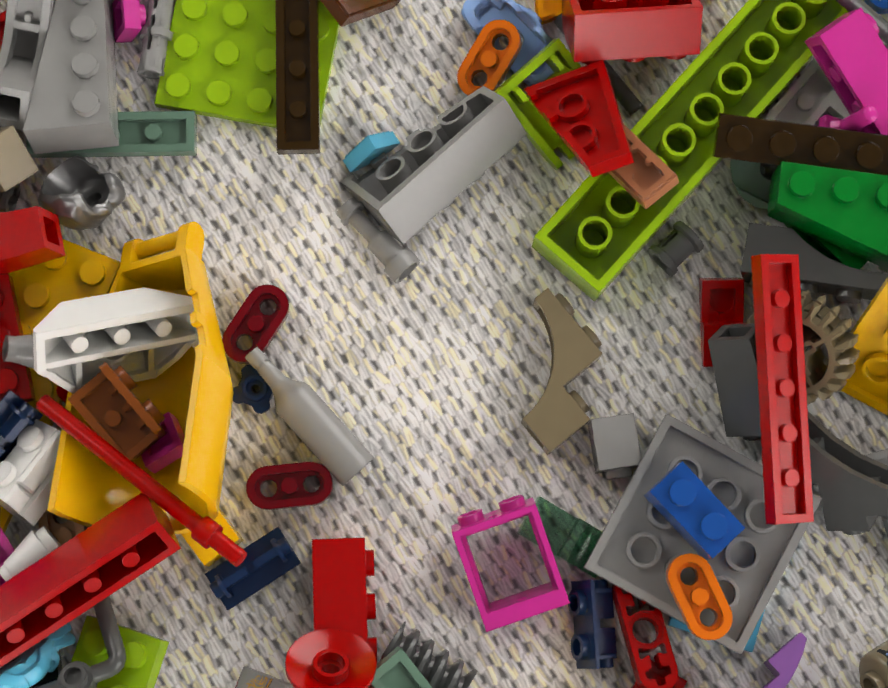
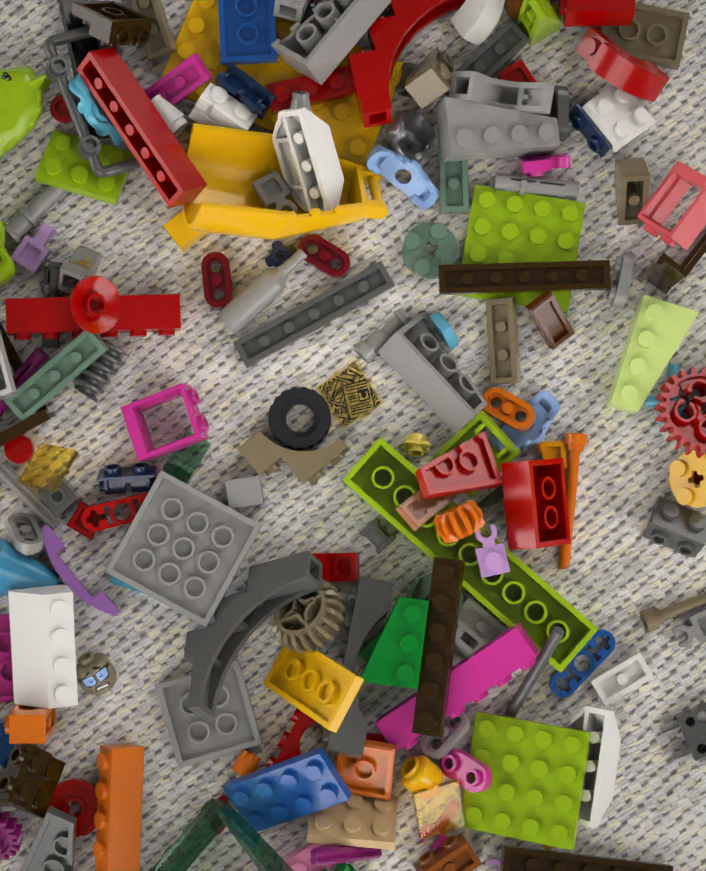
camera: 90 degrees right, 5 degrees up
(117, 413) = (257, 166): dark orange bracket -> none
(158, 182) = (418, 188): none -> light blue piece
(164, 390) = (274, 192): none -> light grey plate
(166, 449) = (242, 193): dark pink plate -> none
(204, 530) = (179, 221): red bar -> none
(240, 192) = (437, 236): none -> sand green plate
(264, 563) = (163, 257): dark blue hinge -> none
(345, 341) = (314, 314): none -> dark grey plate
(389, 65) = (503, 341): none -> dark tan plate
(465, 290) = (349, 395): none -> clear yellow piece
(504, 329) = (287, 400): none -> black tyre
(541, 191) = (416, 444): none -> light yellow plate
(664, 115) = (459, 521): none -> orange gear
(694, 511) = (194, 539): blue brick -> none
(700, 595) = (140, 542): orange plate -> none
(710, 75) = (492, 556): none -> lavender plate
(782, 389) = (273, 597): red plate -> none
(854, 122) = (459, 652): dark pink bar -> none

